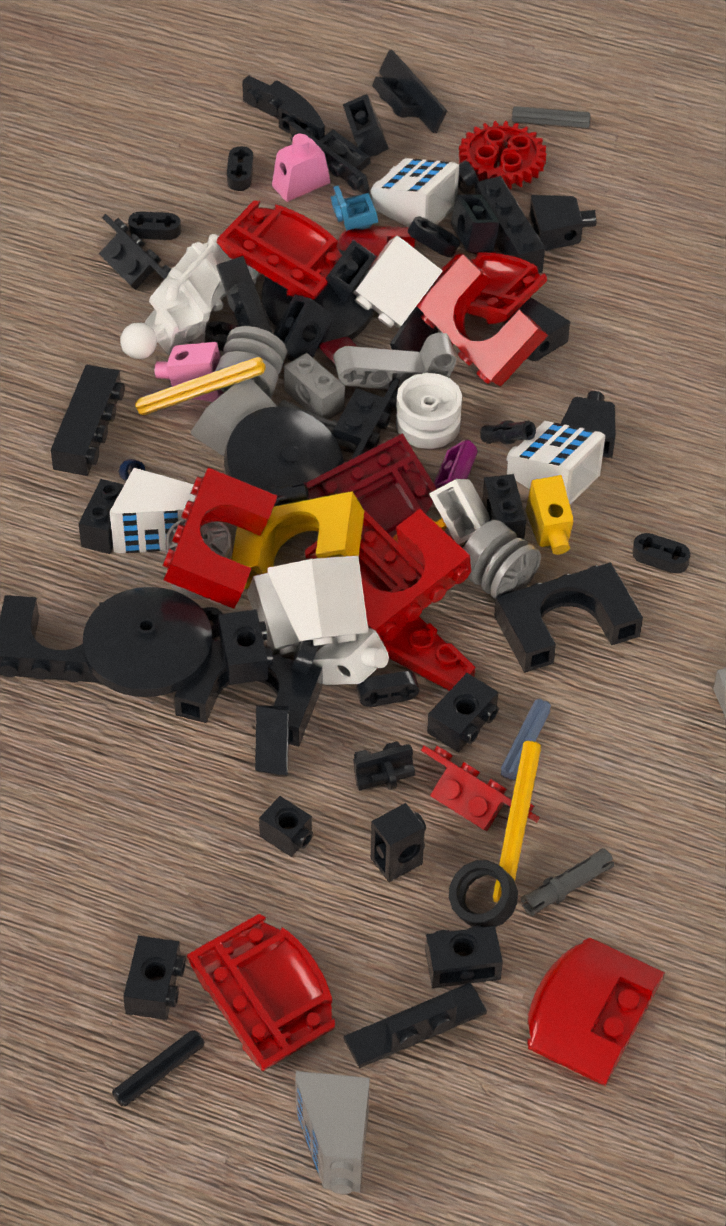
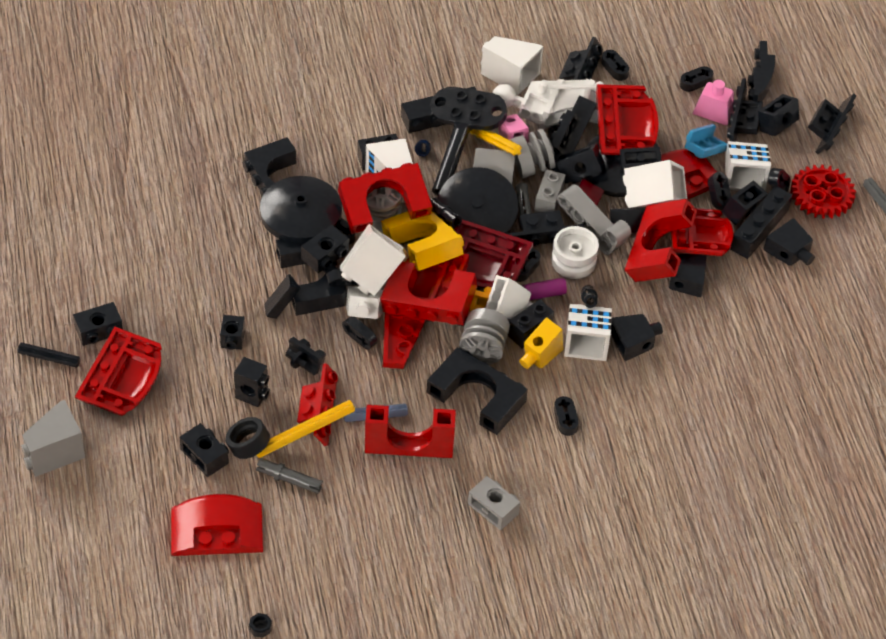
camera: 55 degrees right, 0 degrees up
(77, 311) = (511, 62): none -> white slope
(134, 388) = (466, 112): none -> black piece
(414, 1025) = (148, 450): black bracket -> none
(463, 713) = (368, 373): black brick -> none
(589, 733) = (432, 442): none -> red arch

